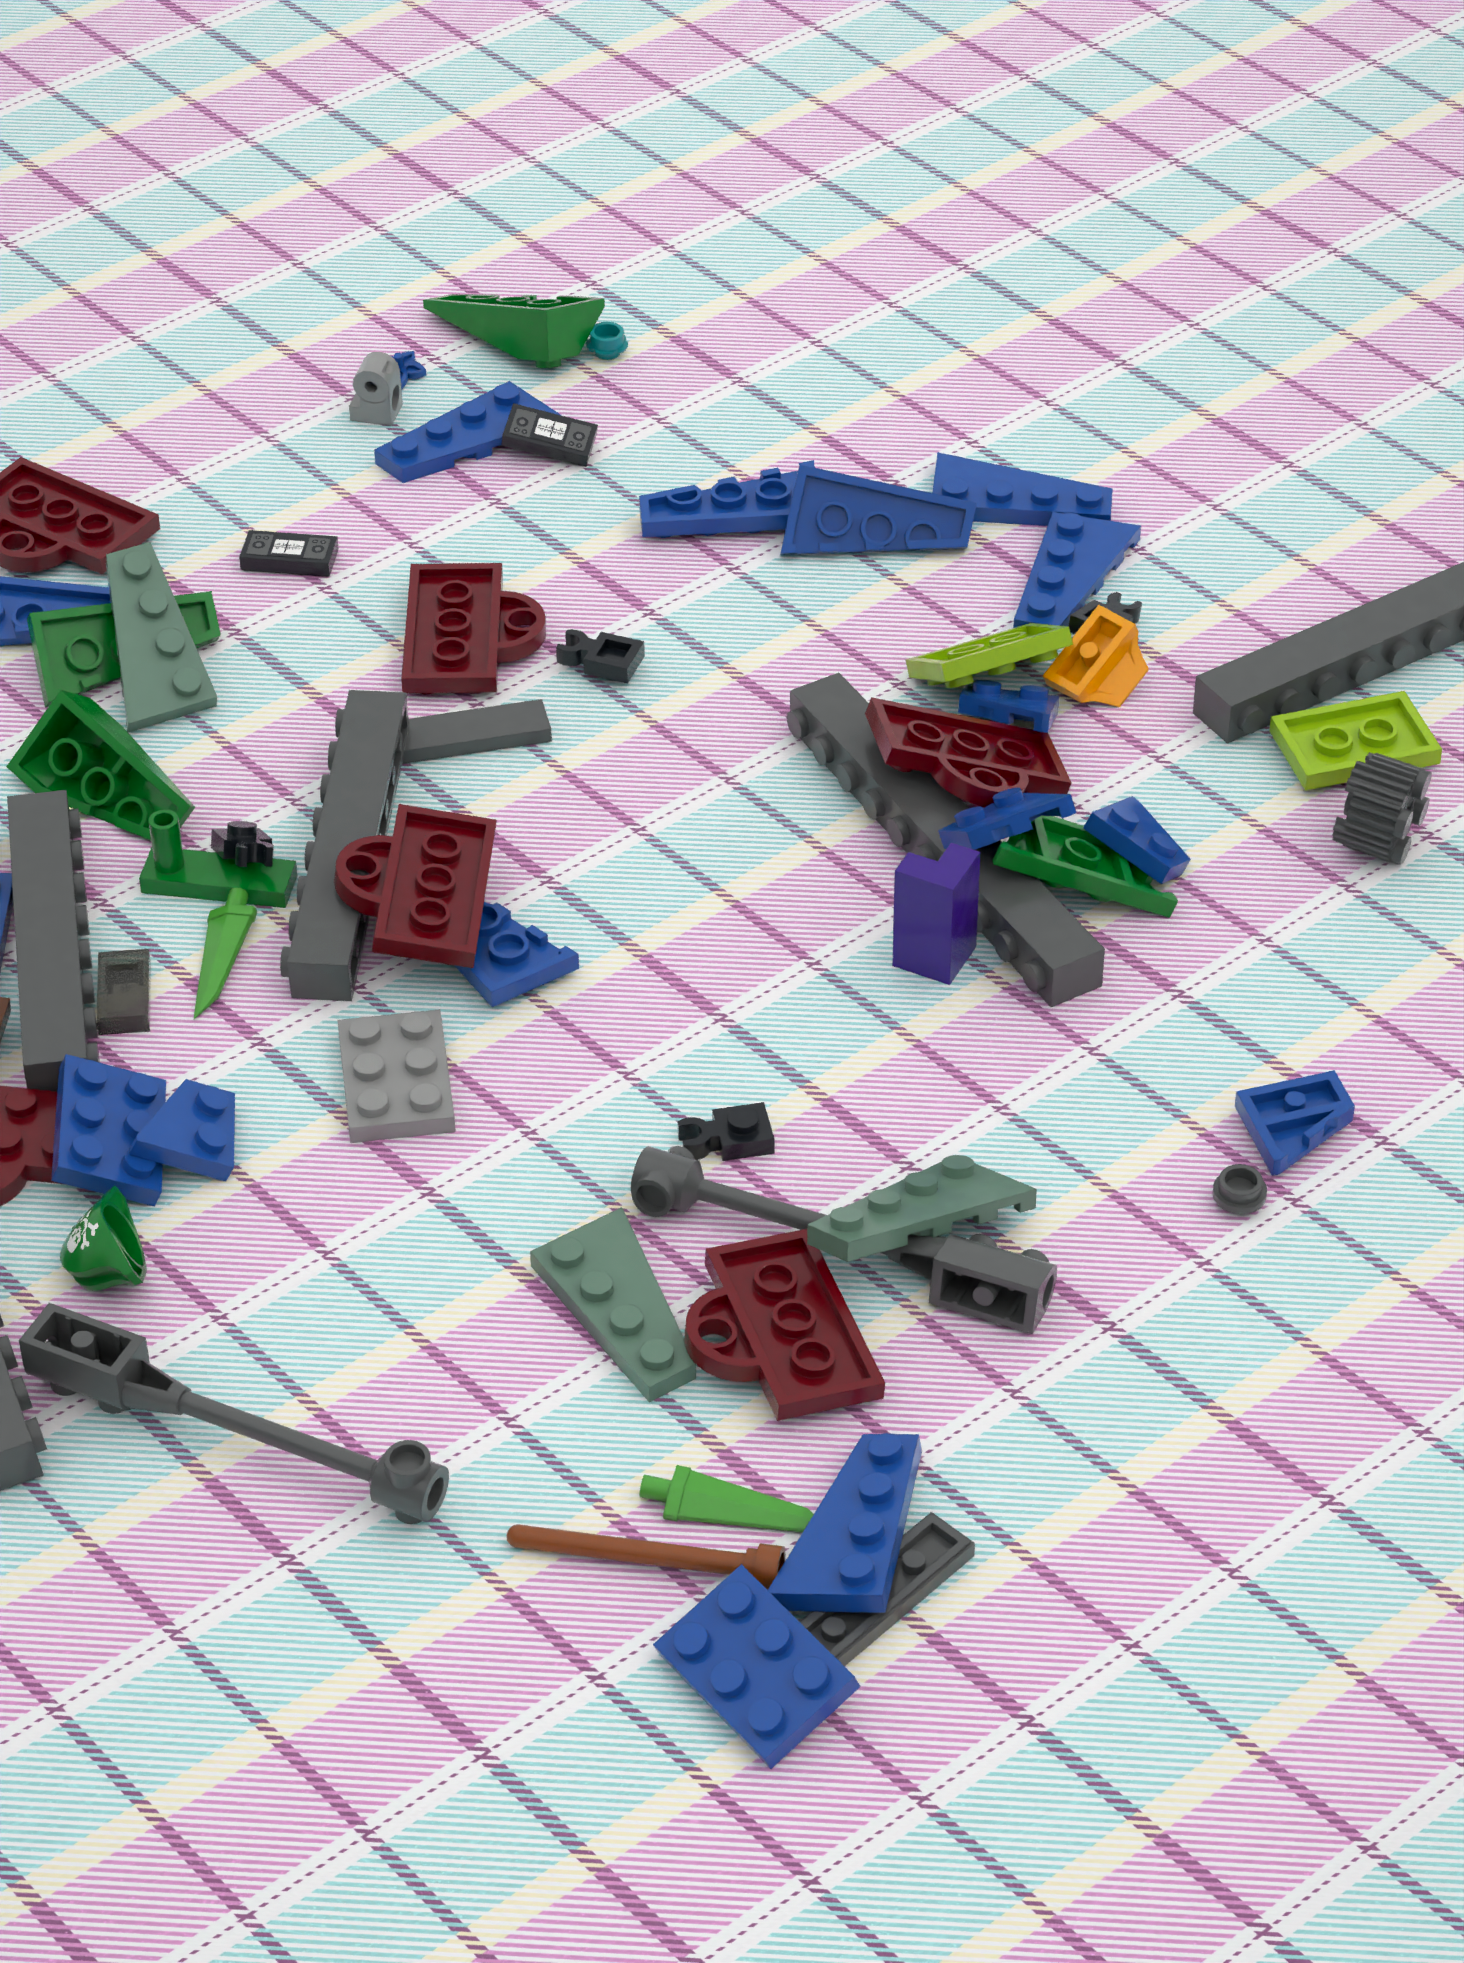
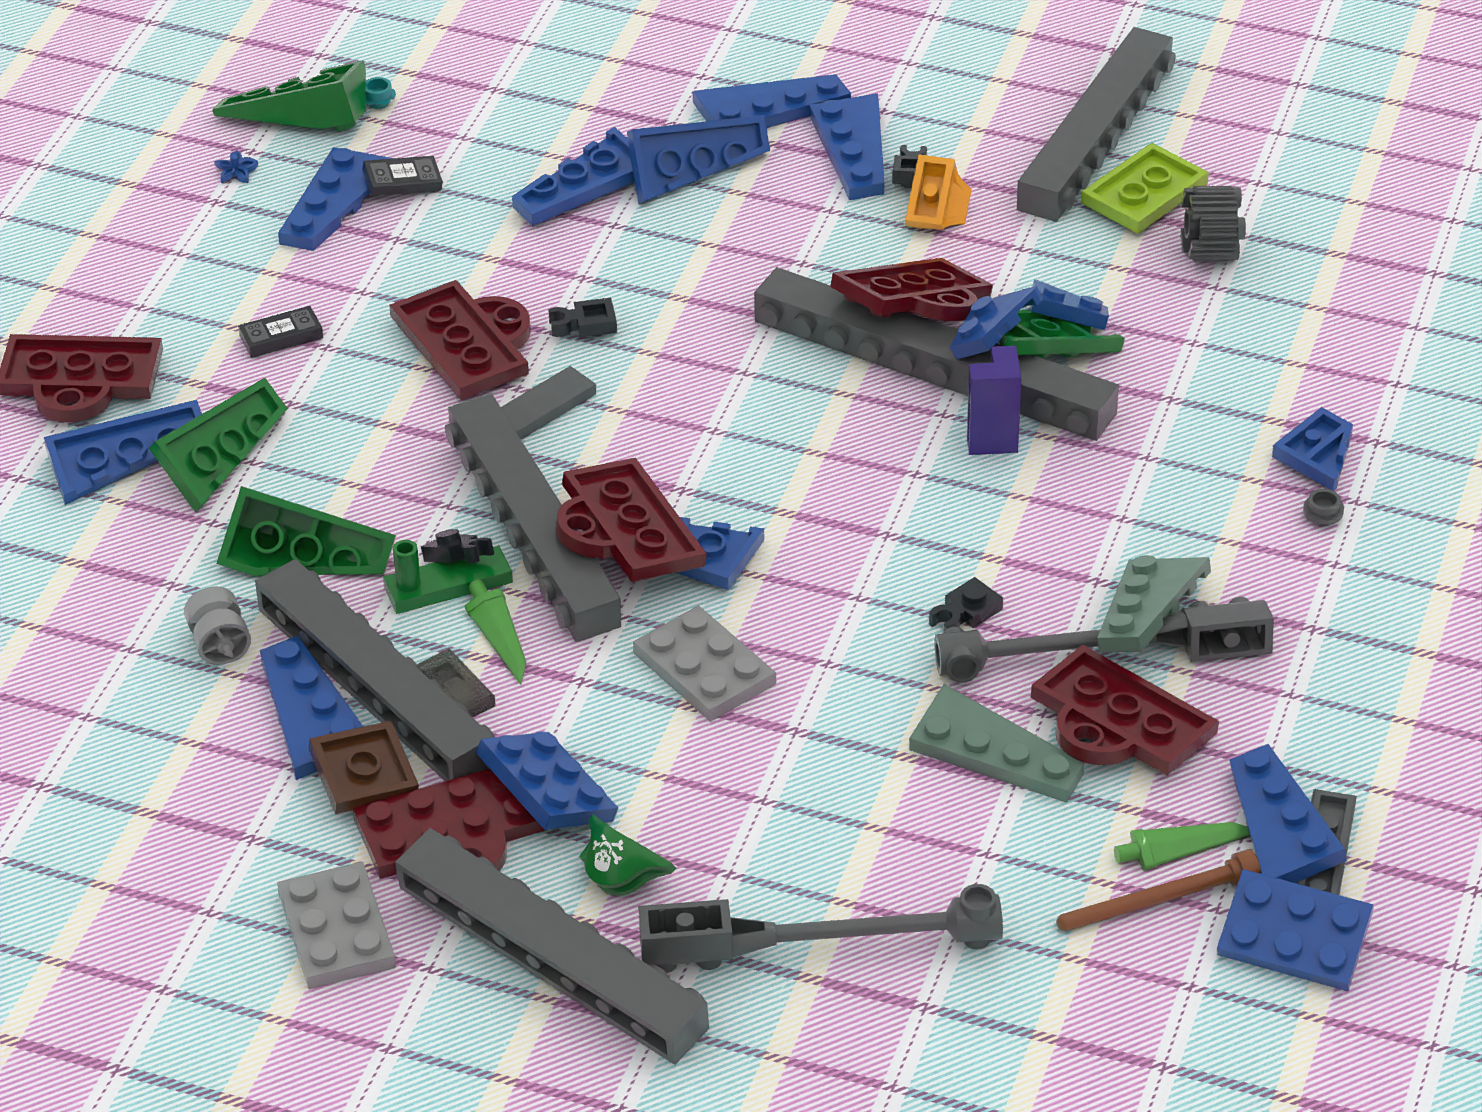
camera: 30 degrees left, 0 degrees up
(154, 647) = (266, 438): sand green wing -> none
(192, 1131) = (606, 756): blue wing -> none
(377, 390) = (245, 190): light grey leg -> none
(989, 653) = (861, 217): lime plate -> none
(989, 701) = (904, 248): blue wing -> none

